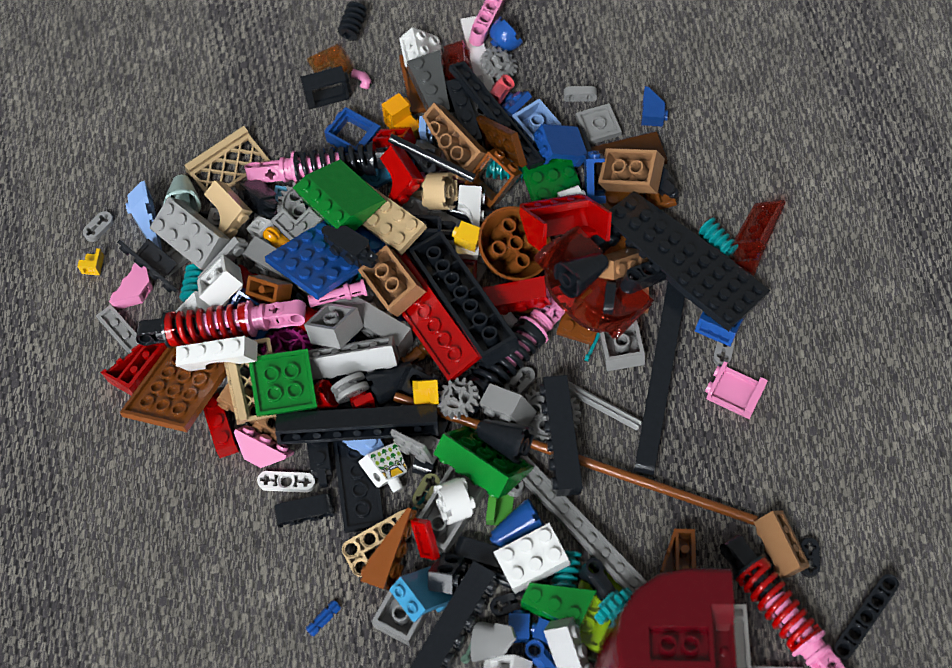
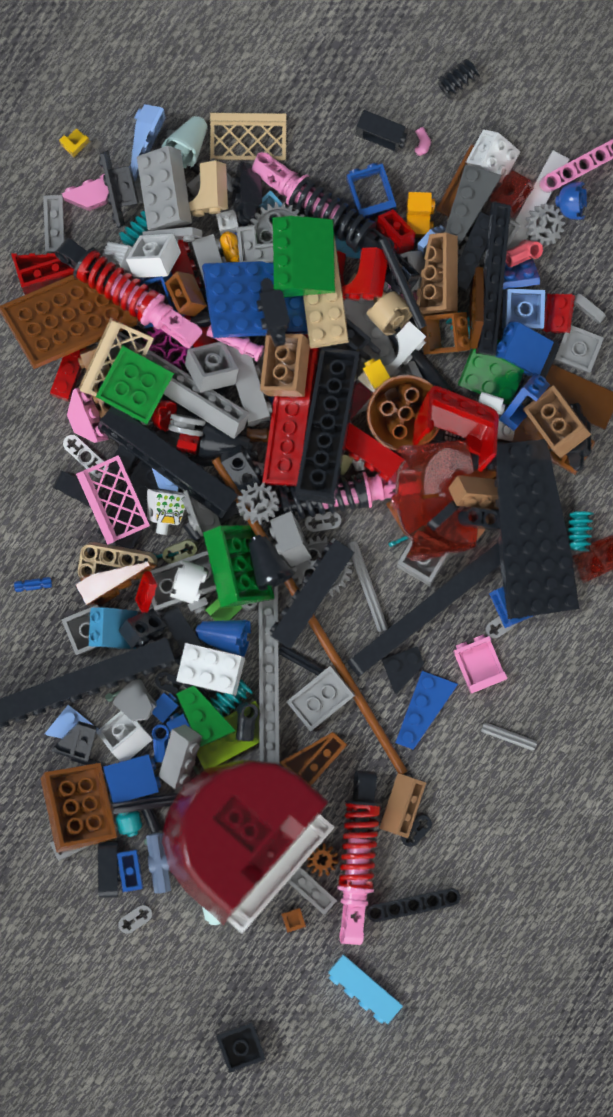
camera: 35 degrees right, 20 degrees up
(98, 226) = (104, 115): light grey beam -> none
(233, 350) = (101, 324): white arch -> none
(328, 58) = (414, 99): clear orange plate -> none
(330, 508) = (96, 504): none -> bright pink fence
(425, 392) = (237, 477): yellow panel -> none
(477, 522) = (198, 606): none -> light grey plate
(563, 109) = (558, 313): none -> red plate
(579, 273) = (432, 482): black cone -> none
(601, 499) = (301, 660): none -> black axle
(612, 605) = (238, 751): teal gear -> none
(639, 514) = (320, 698): none -> light grey plate
(680, 441) = (402, 667): none -> black wing
(724, 456) = (424, 706): none -> blue wing
(767, 644) = (328, 862): none -> dark orange gear
(808, 426) = (509, 736): none -> light grey axle

